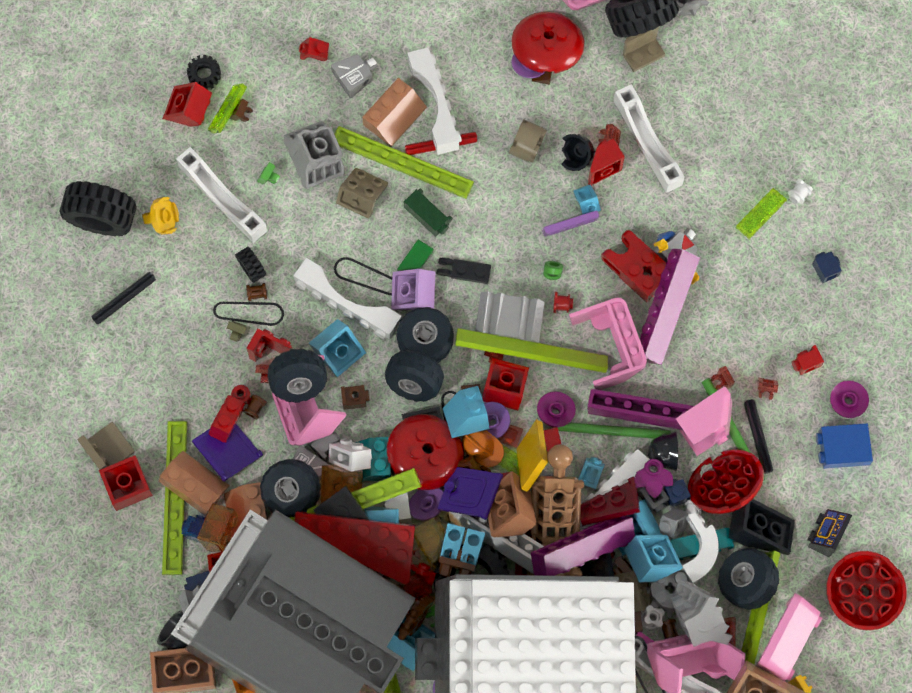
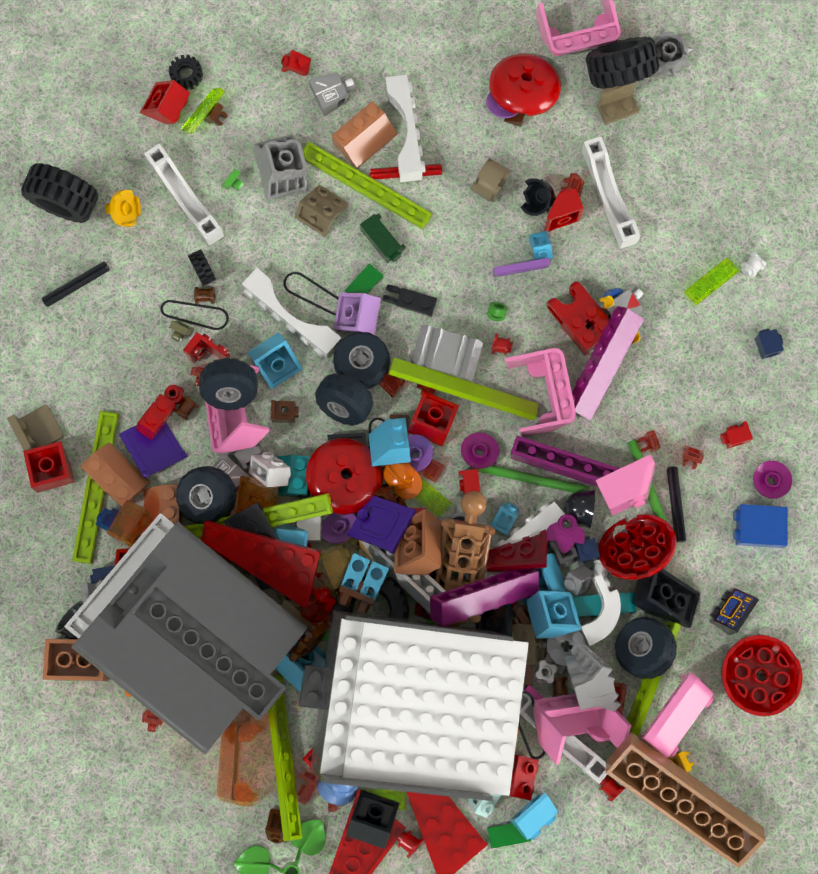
camera: 10 degrees right, 5 degrees up
(458, 355) = (392, 384): none -> clear red tile
(532, 455) = (447, 495): yellow tile -> none

